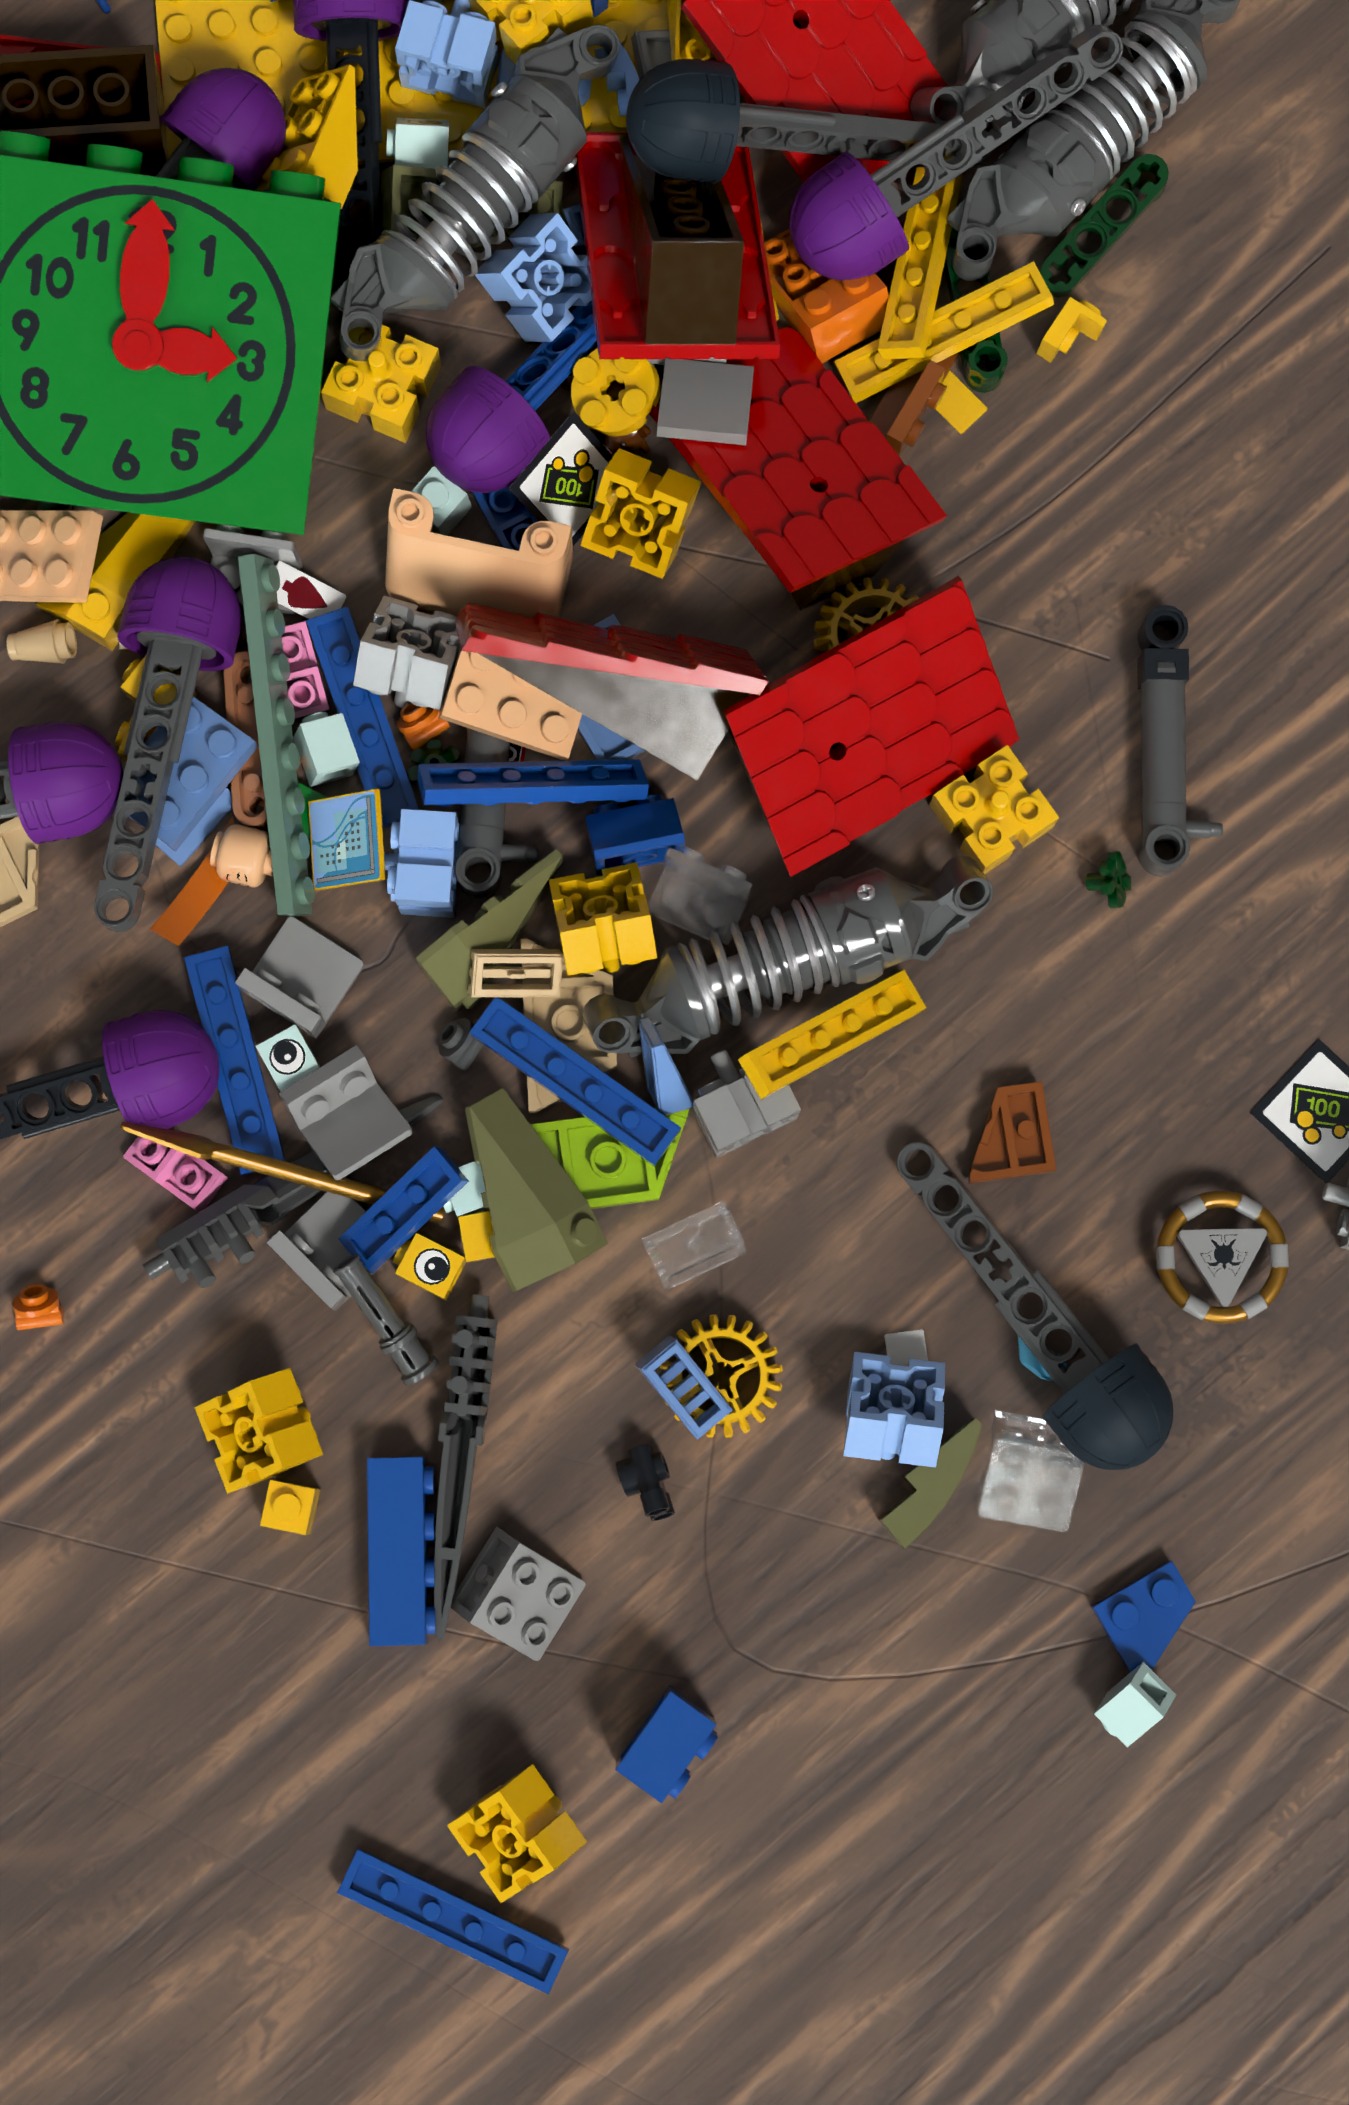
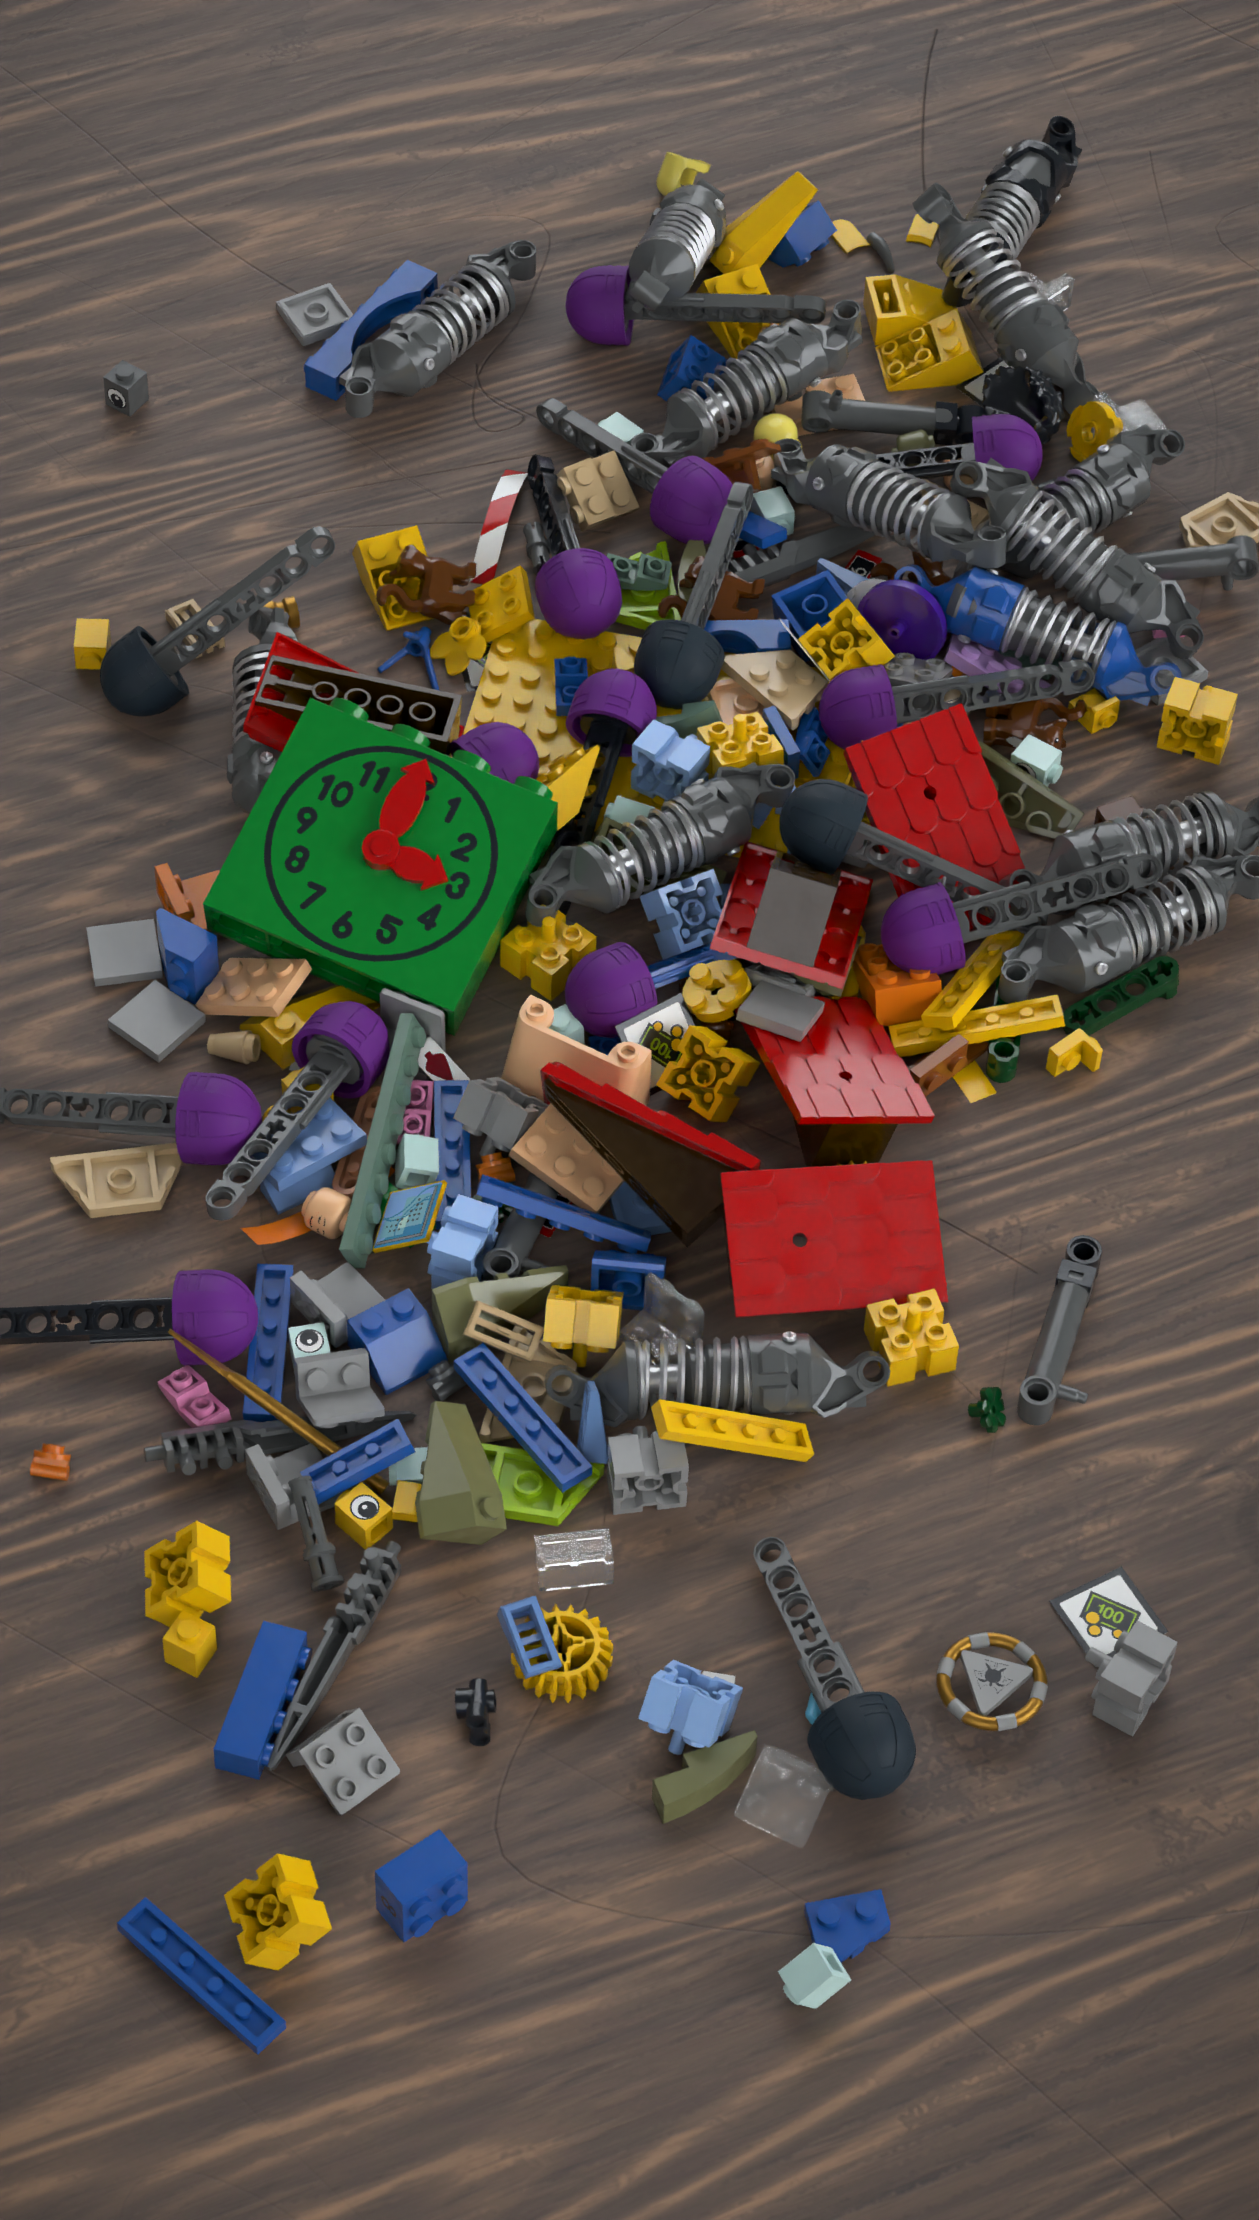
camera: 20 degrees right, 30 degrees down
(388, 1014) = (398, 1340): none -> blue slope
(1014, 1136) = (853, 1559): dark orange wing -> none

